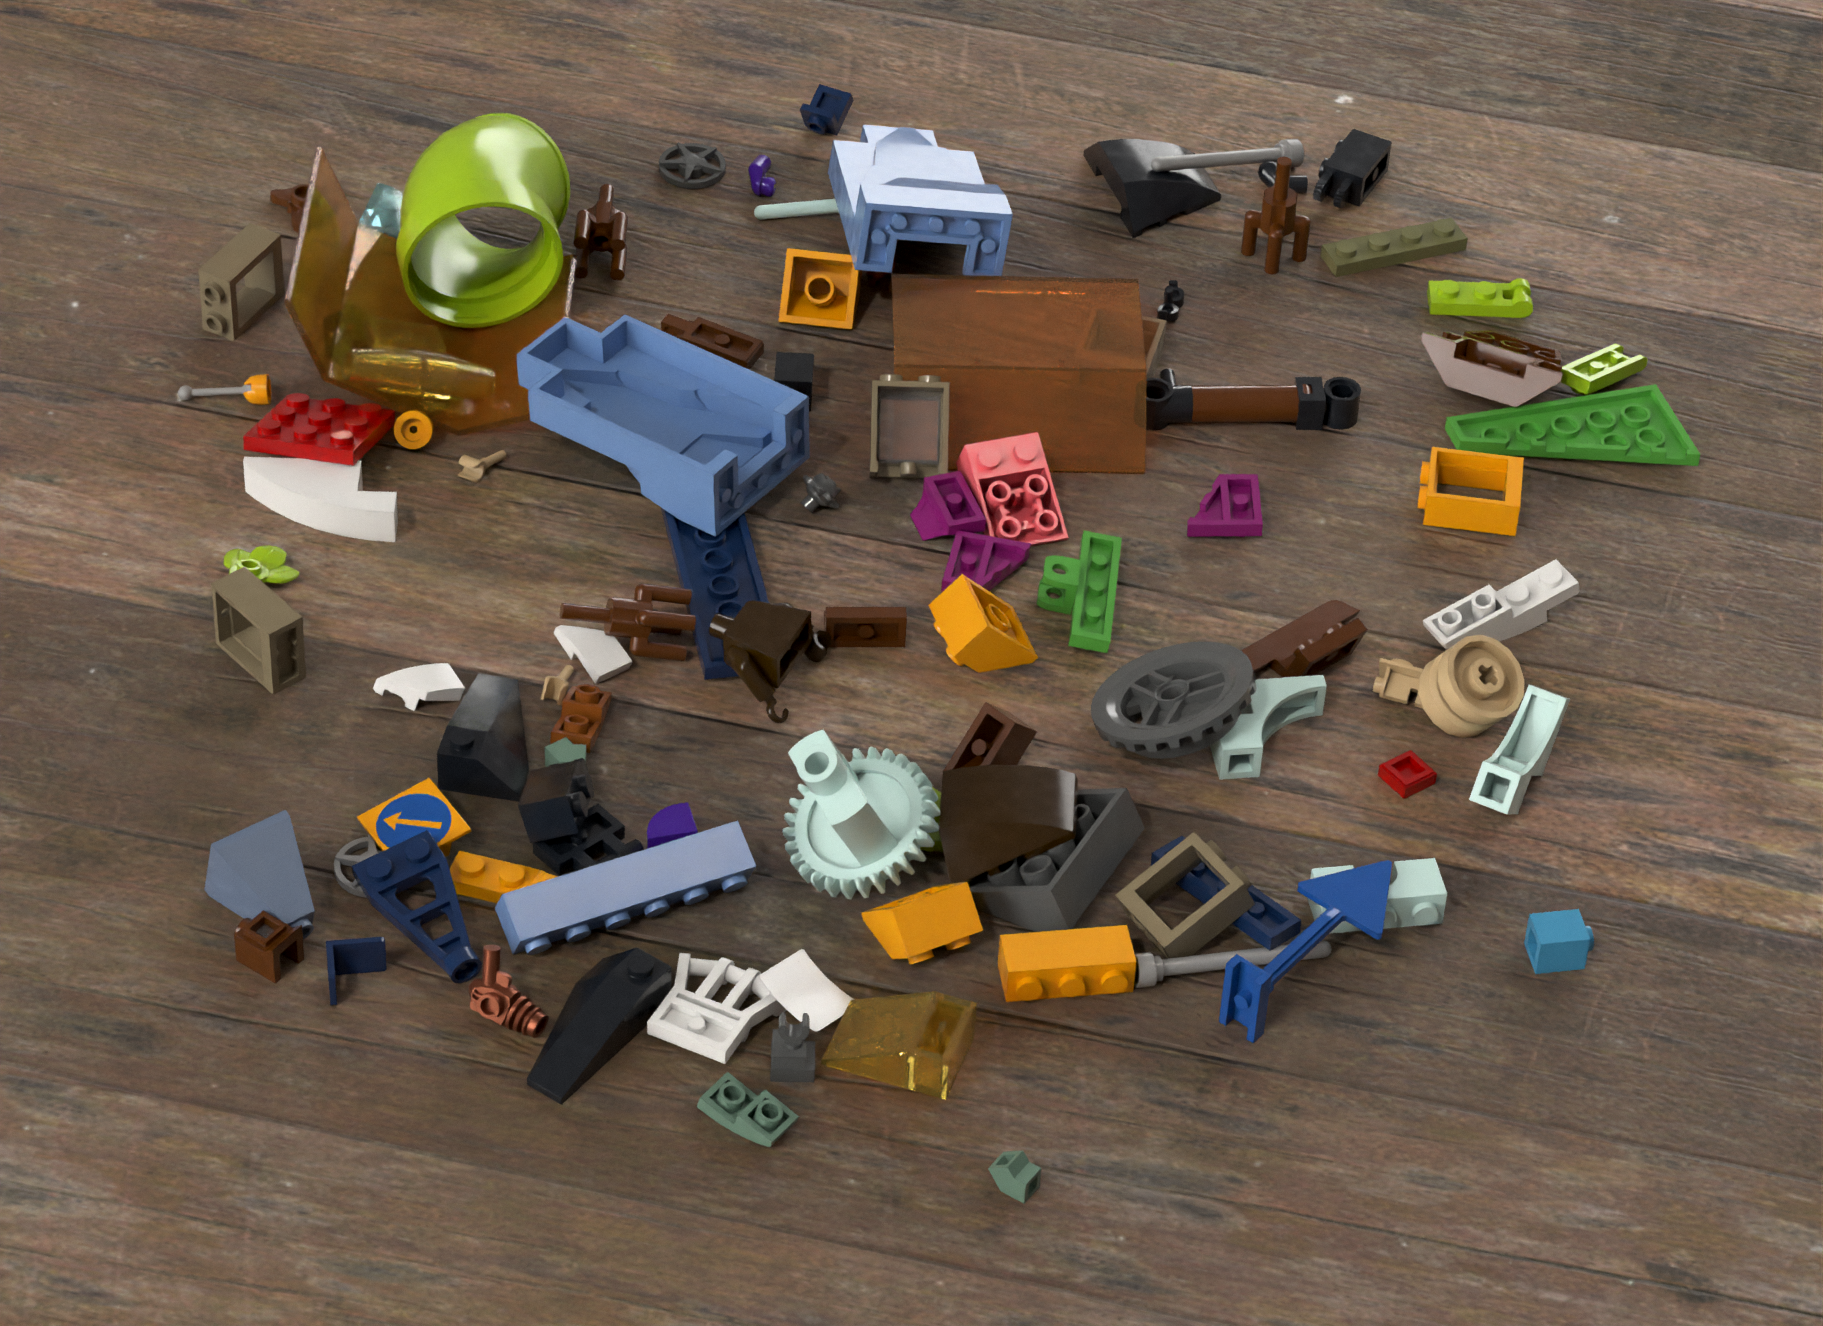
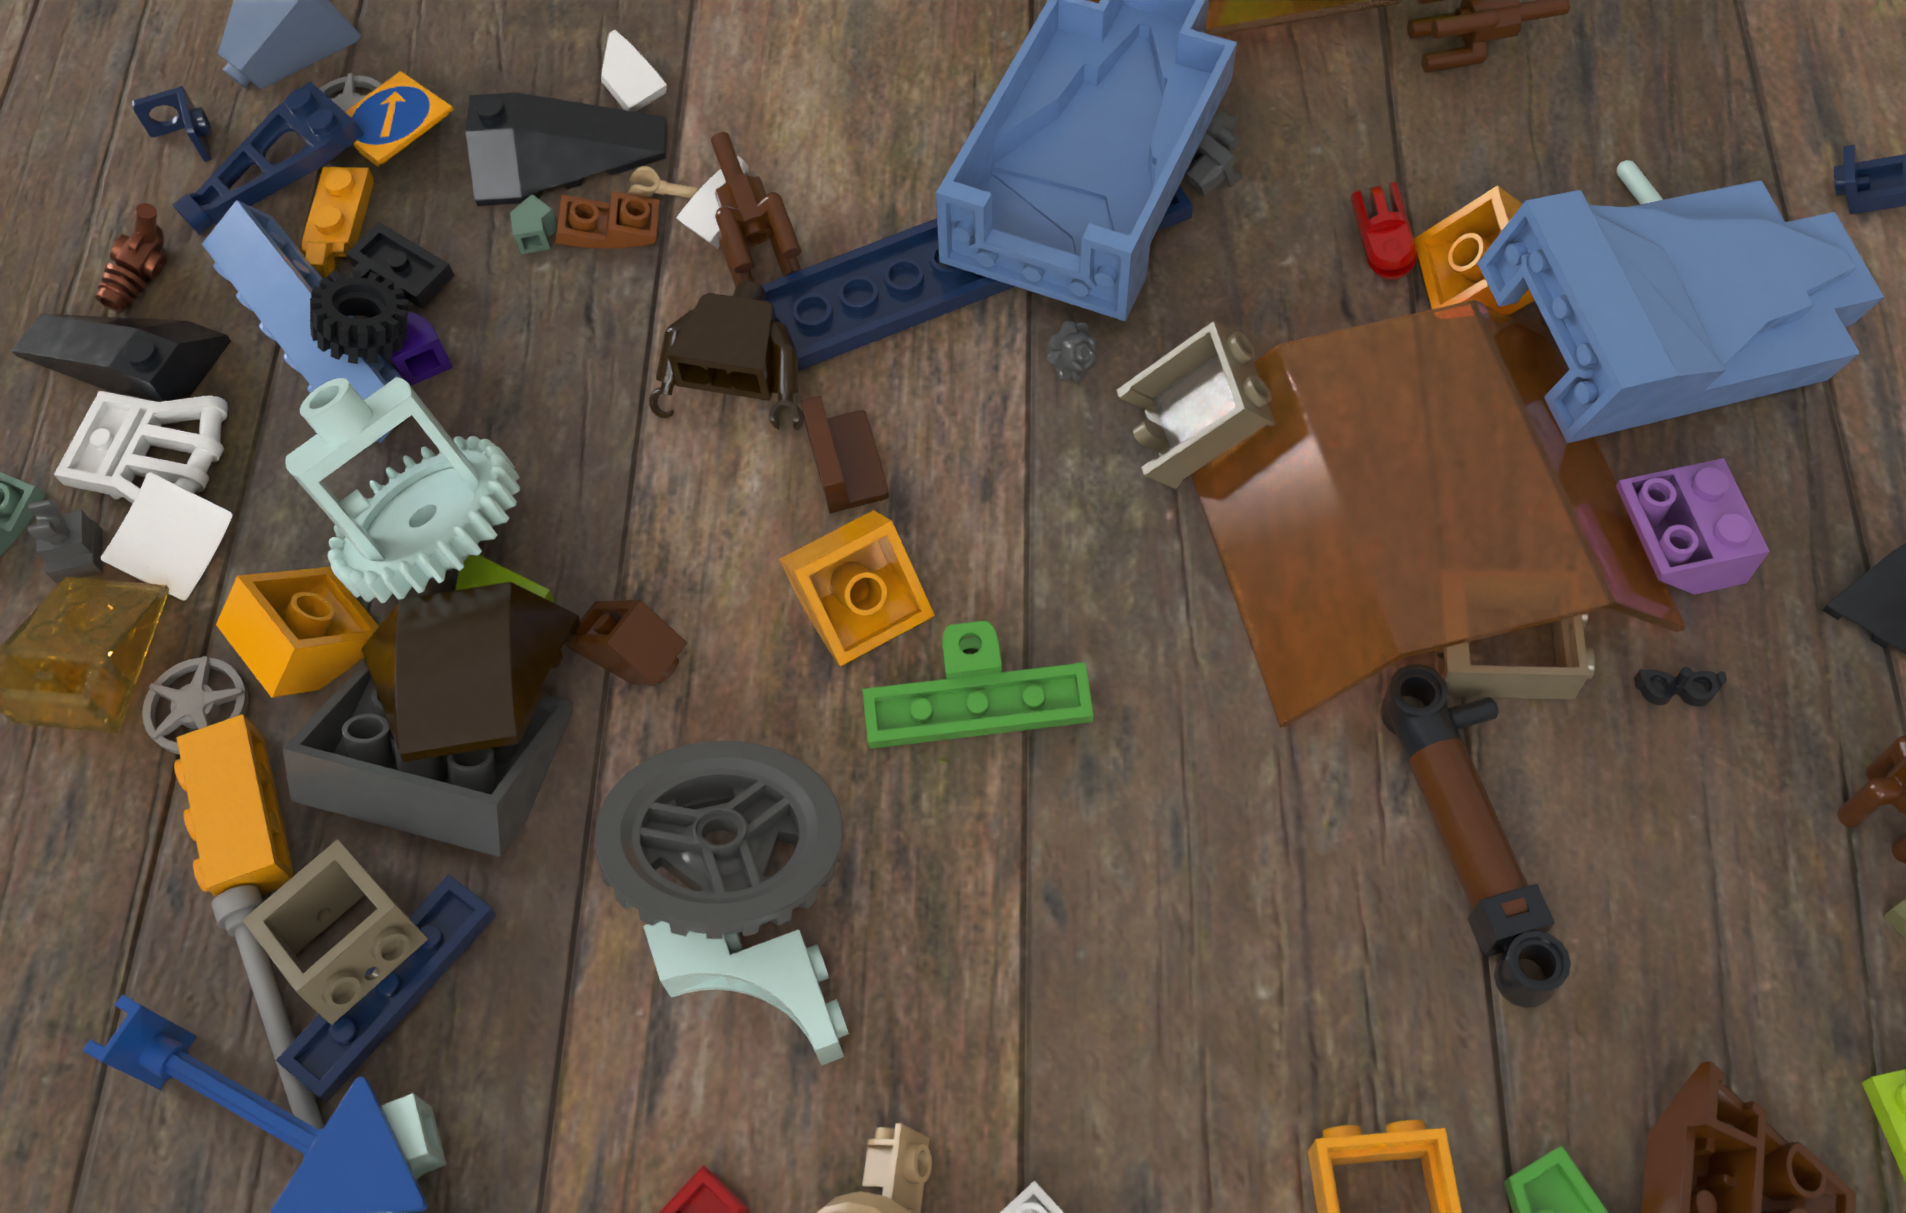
camera: 85 degrees right, 20 degrees up
(262, 940) = (198, 54): reddish brown window -> none
(475, 468) = (1006, 23): tan hand -> none
(556, 800) = (435, 220): black hinge -> none
(672, 818) = (355, 337): none -> black tyre
(692, 165) = (1686, 81): dark grey wheel -> none
(715, 339) = (1325, 182): reddish brown hinge -> none
(757, 171) = (1683, 152): dark purple arm -> none
(776, 324) = (1387, 234): none -> red arm
(795, 372) = (1276, 265): black panel -> none
(947, 507) = (1093, 500): magenta slope -> none
(967, 989) = (194, 703): none -> light grey wheel
(983, 559) = (993, 556): magenta wing -> none
(1014, 489) = (1143, 565): coral slope -> none
(1070, 251) = (1695, 526): none -> medium lavender slope
(1229, 509) = (1224, 853): magenta wing -> none
(1309, 642) = (948, 1010): reddish brown plate -> none

